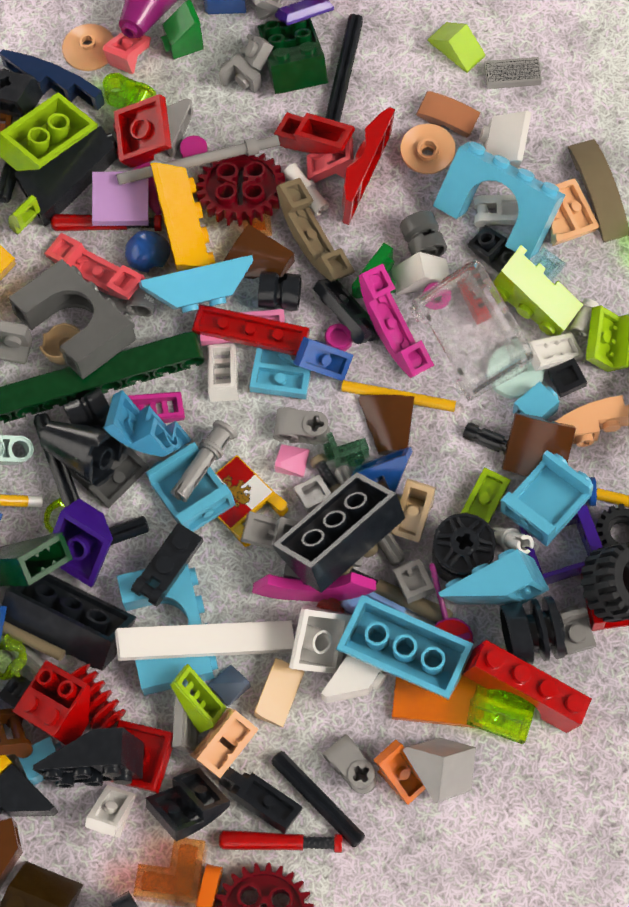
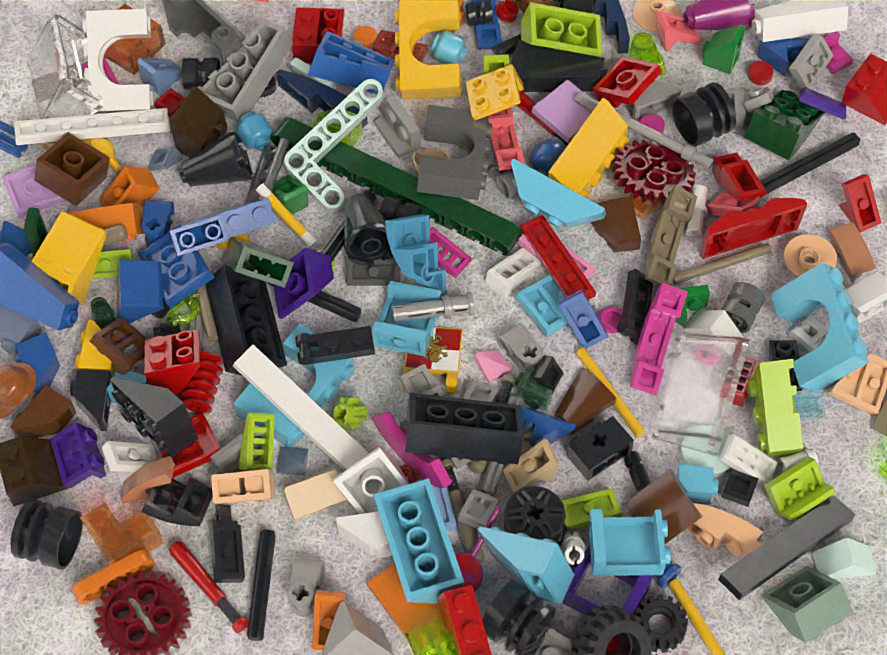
camera: 45 degrees right, 10 degrees down
(50, 238) = (494, 91): none -> yellow bracket
(62, 852) = (77, 454): none -> dark purple bracket
(143, 811) = (151, 475): none -> nougat slope
(227, 26) = (760, 73): none -> red tile
(230, 103) = (704, 114): none -> black wheel
(234, 605) = (350, 413): none -> lime gear
(279, 290) = (602, 252): black wheel -> none
(342, 427) = (548, 373): none -> black plate
(368, 213) = (722, 263): none -> dark tan bar
(418, 70) = (860, 203): none -> red slope
(445, 430) = (594, 460): none -> black brick

